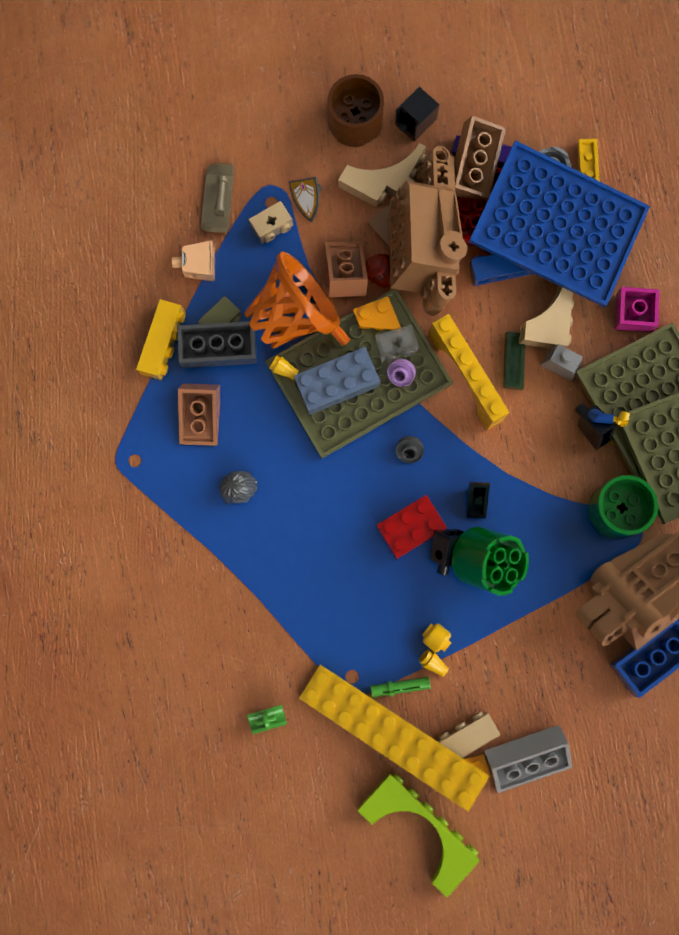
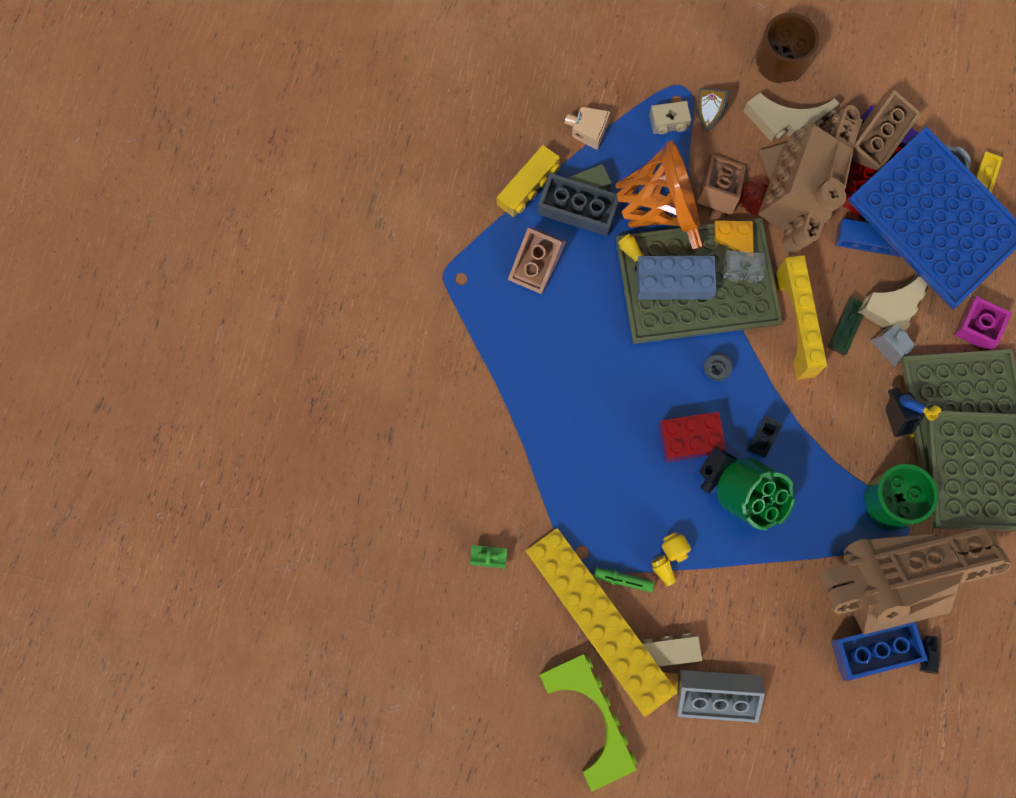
camera: 20 degrees right, 5 degrees down
(217, 198) = (630, 78): dark tan piece -> none
(238, 487) = (545, 338): dark grey hair -> none
(401, 372) = (738, 293): lavender plate -> none
(416, 114) = (841, 72): black piece -> none

